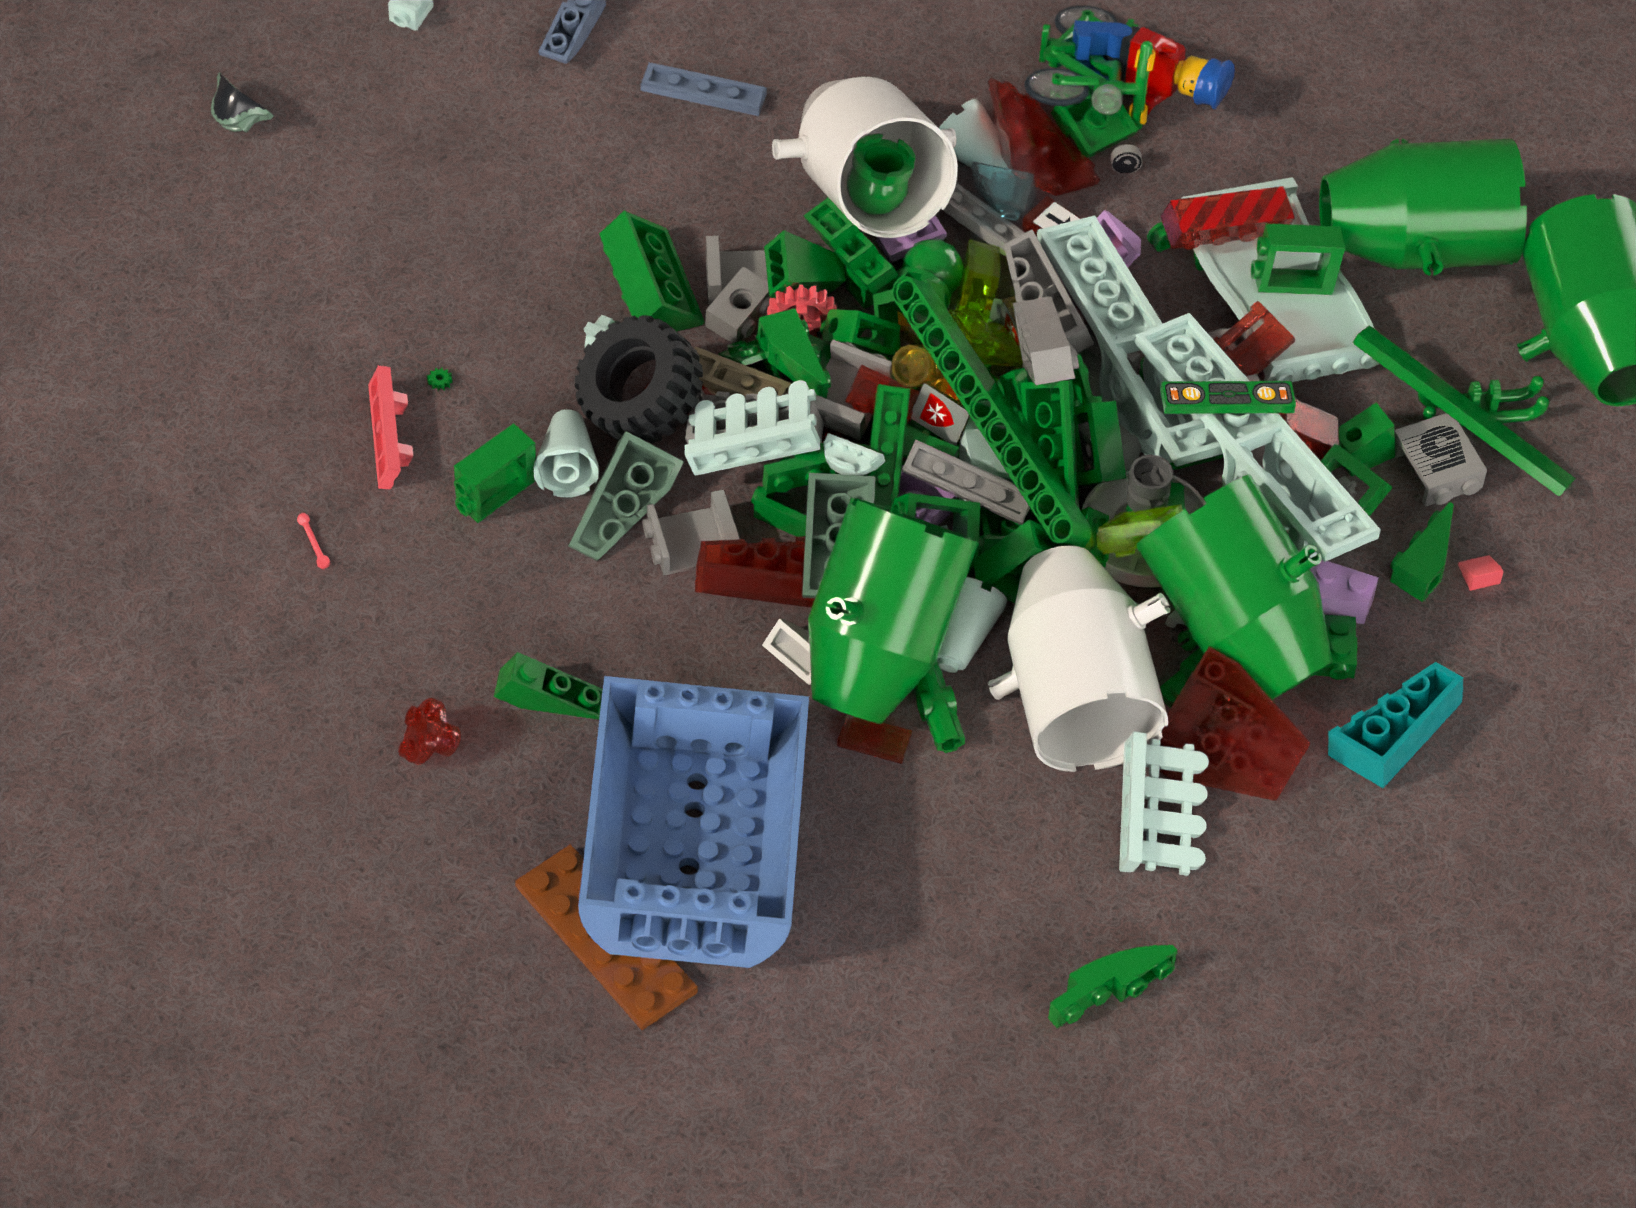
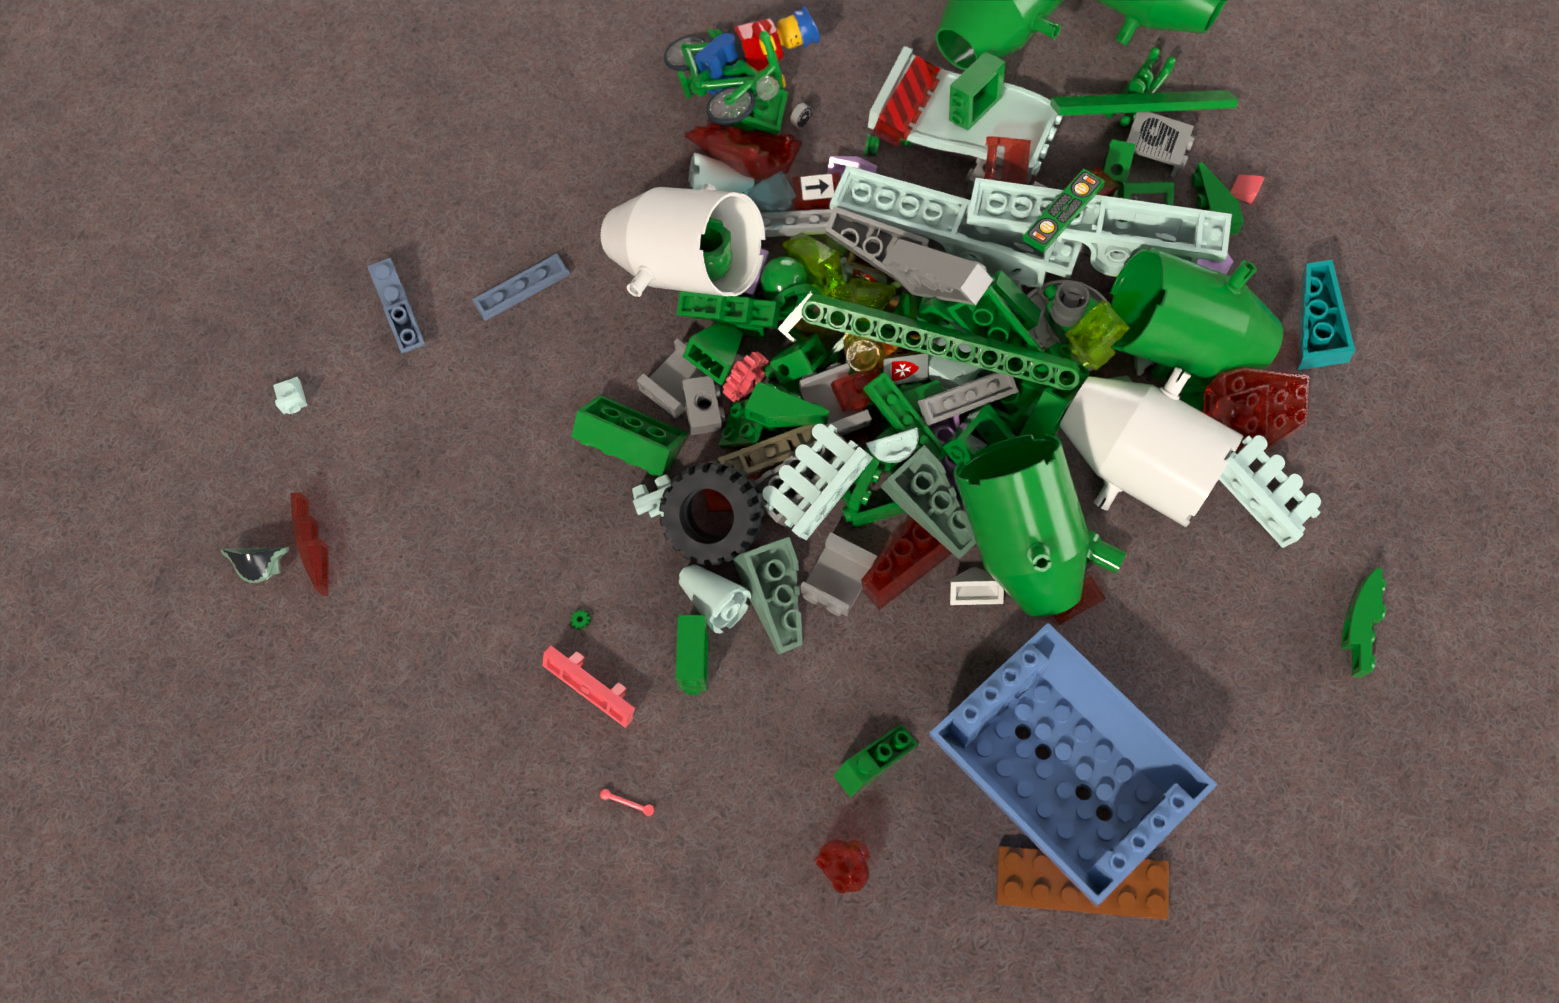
camera: 40 degrees left, 15 degrees up
(290, 134) = (312, 550): none -> clear red slope

